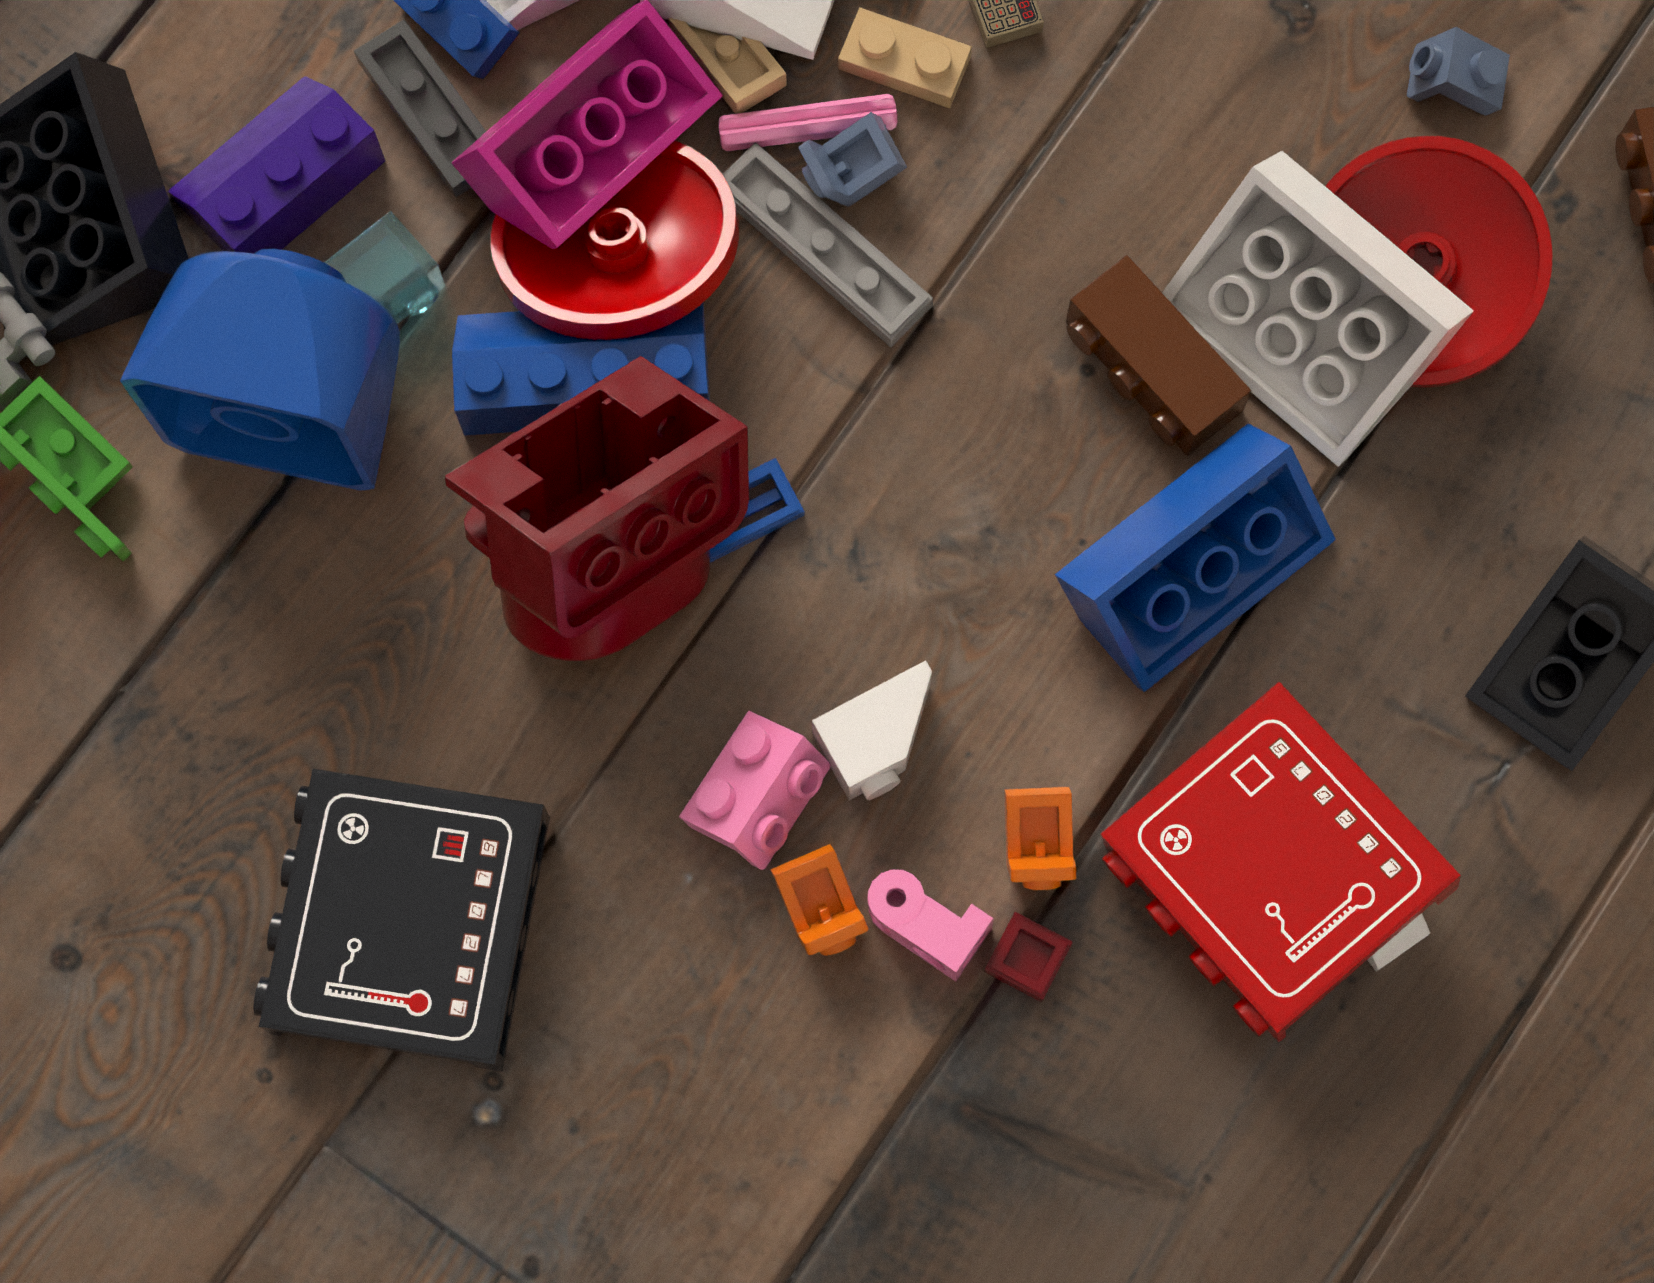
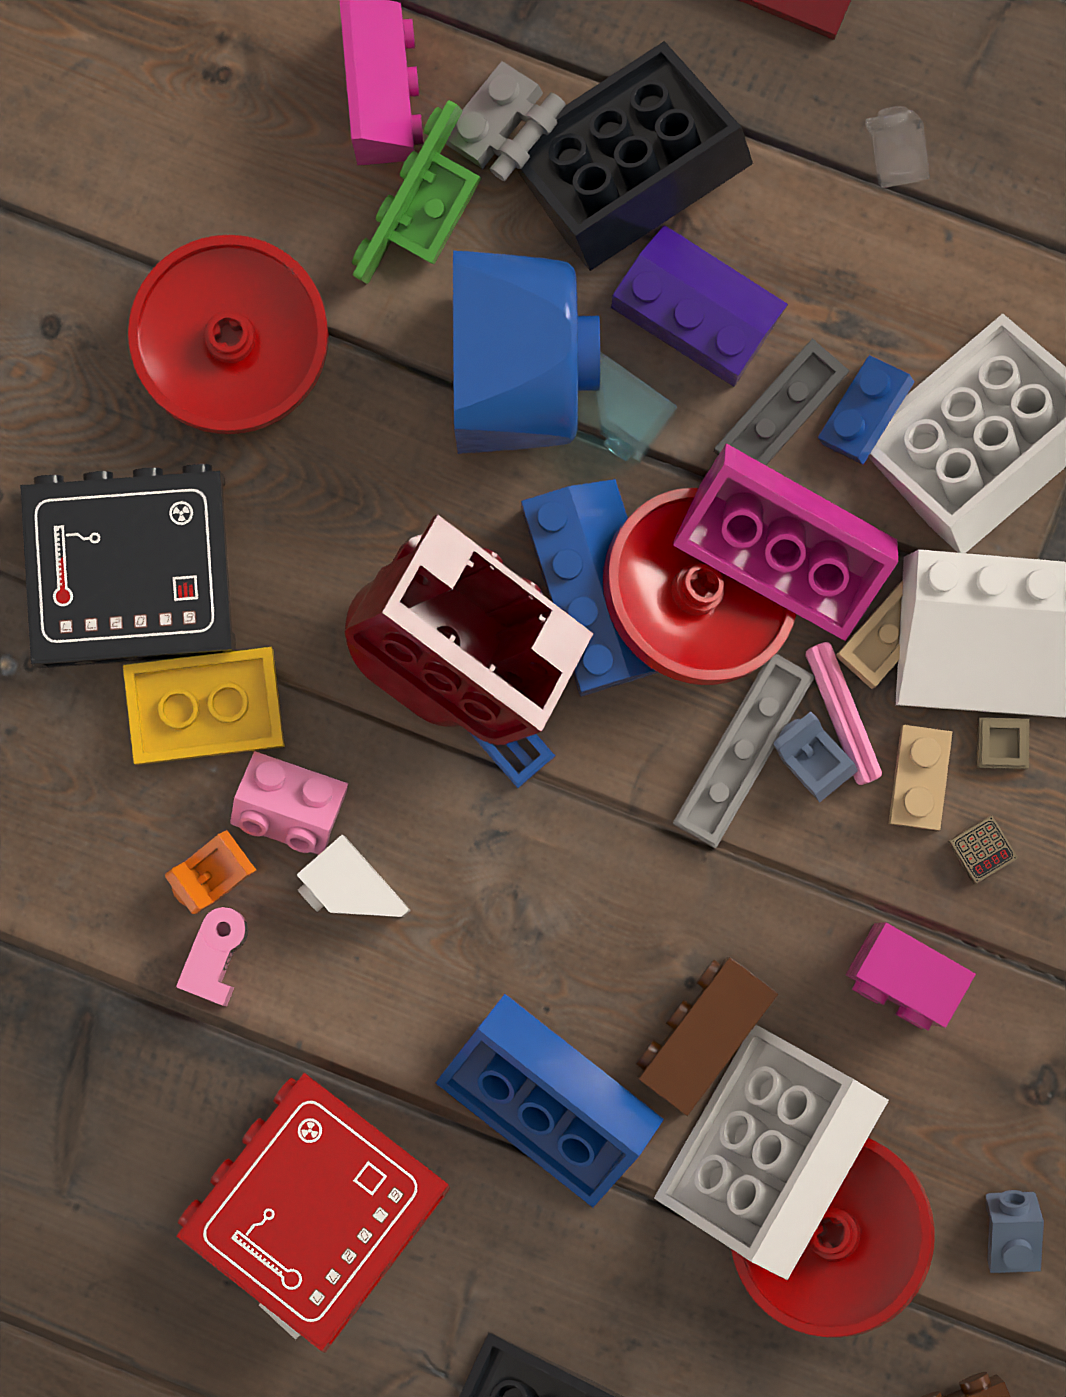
camera: 75 degrees right, 10 degrees up
(142, 723) = (228, 334): none -> red dish
(605, 866) = (203, 706): none -> yellow plate
(1028, 956) = (209, 1038): dark red tile -> none
(1039, 837) = (296, 1027): orange bracket -> none
(1137, 105) = (909, 975): none -> dark pink brick

